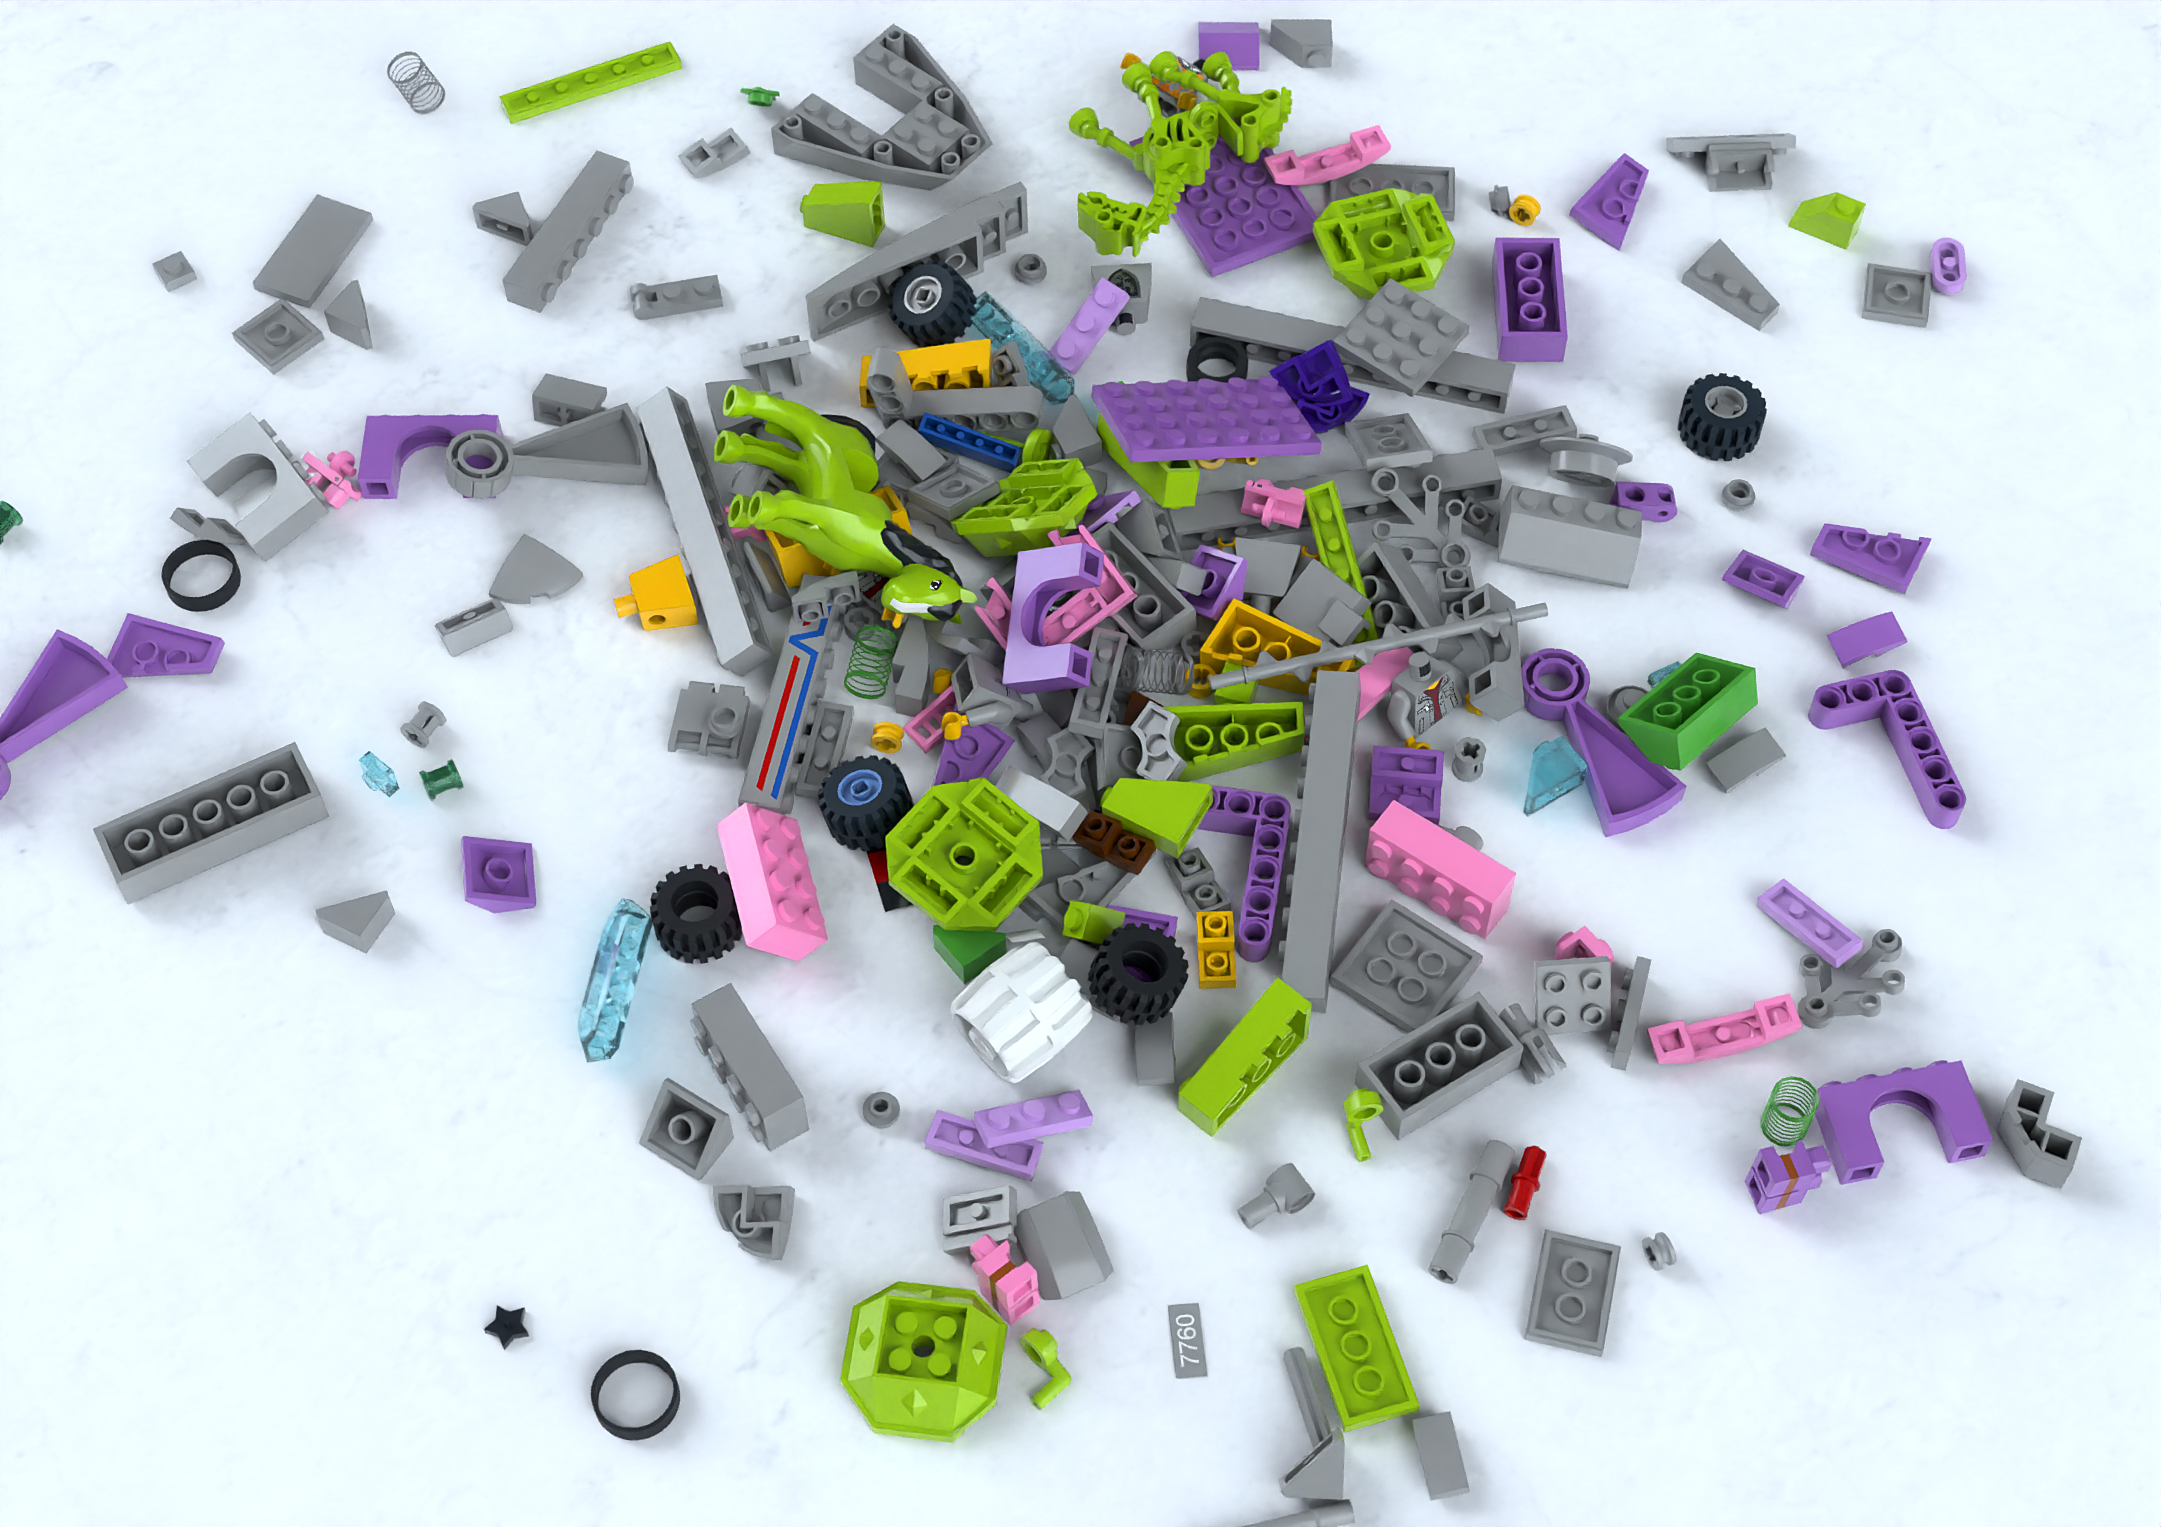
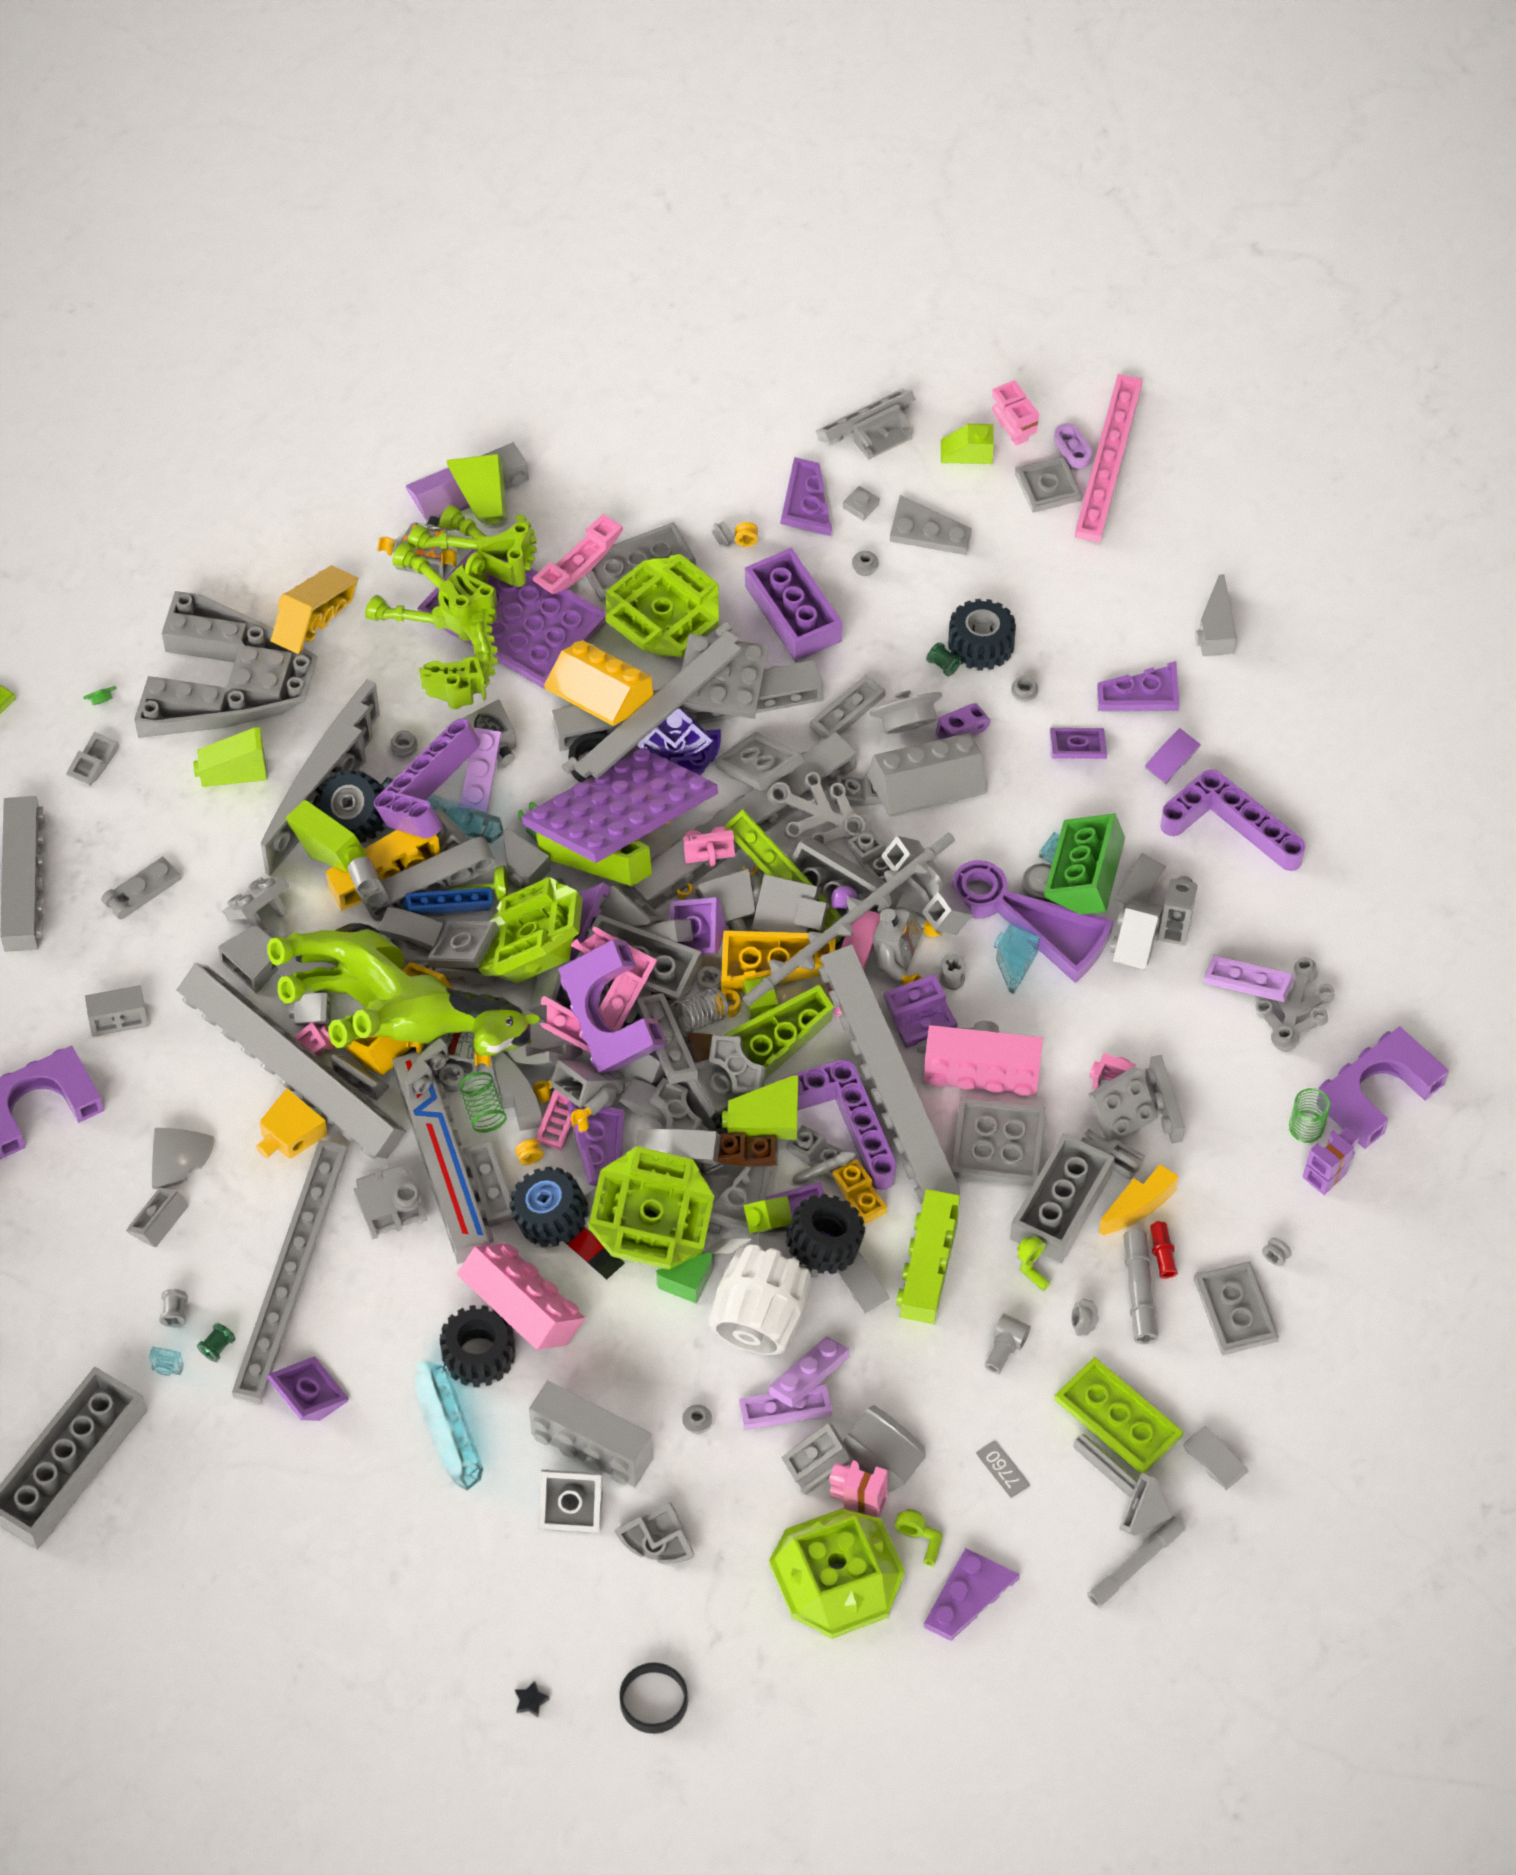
camera: 30 degrees left, 0 degrees up
(357, 920) = (224, 1476): light grey slope -> none
(563, 743) = (289, 1272): none -> light grey plate
(591, 449) = (163, 1037): light grey piece -> none
(875, 315) = (324, 837): none -> lime slope
(977, 314) = (404, 799): none -> medium lavender beam
(1017, 91) = (312, 607): none -> yellow wedge
(1056, 1461) = (967, 1592): none -> medium lavender wing
(1191, 903) = (840, 1160): none -> light grey piece
(1265, 290) = (599, 683): none -> yellow slope
(1270, 47) = (482, 485): none -> lime slope
(1310, 337) = (659, 706): none -> light grey piece
(1385, 617) = (840, 895): none -> medium lavender piece
(1386, 1214) = (1084, 1317): none -> light grey piece
(1528, 1112) = (1139, 1200): none -> yellow slope
(1638, 292) = (865, 568): none -> light grey plate
(1664, 426) = (944, 659): none -> clear green bush
(1672, 230) = (861, 503): none -> light grey plate
(1704, 811) = (1139, 927): none -> brick
(1726, 1034) = (1236, 1082): bright pink slope -> none
(1776, 793) = (1181, 898): none -> light grey torso
(1899, 202) = (1015, 412): none -> bright pink hips
(1982, 295) = (1108, 458): none -> bright pink plate
(2003, 518) = (1217, 627): none -> light grey slope
(2037, 1148) = (1476, 1061): light grey brick -> none

